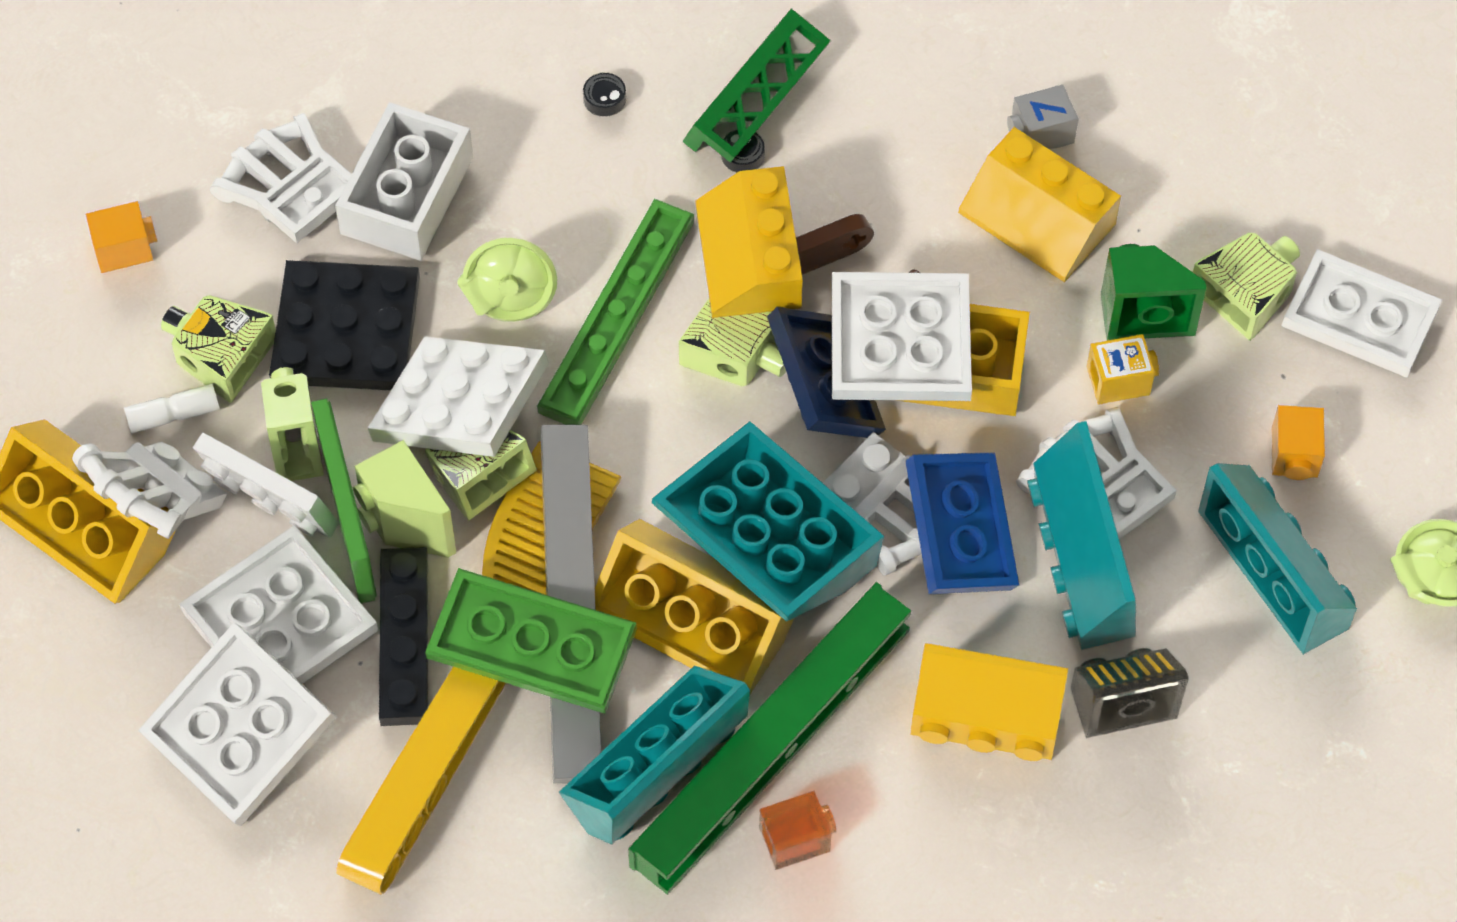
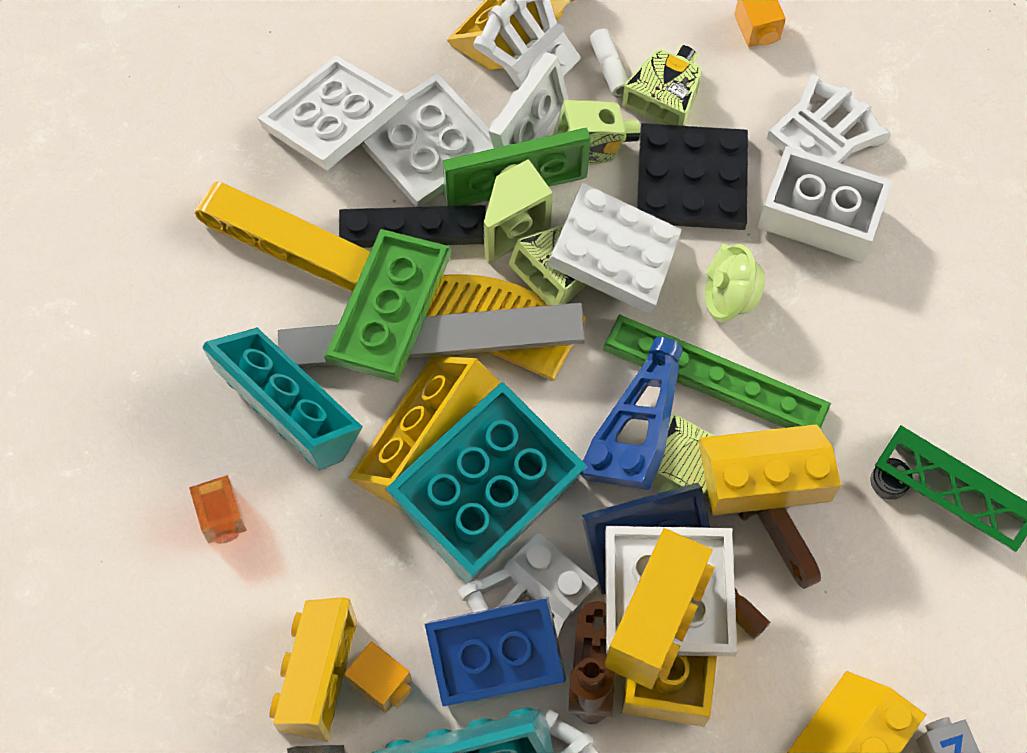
camera: 90 degrees right, 5 degrees up
(604, 94) = (940, 364): black tile -> none
(734, 400) = (631, 463): none -> blue plate
(769, 739) = (307, 495): green tile -> none
(940, 322) = (660, 609): none -> yellow brick
(996, 634) = (379, 678): none -> light orange brick
(997, 427) = (590, 682): none -> reddish brown piece

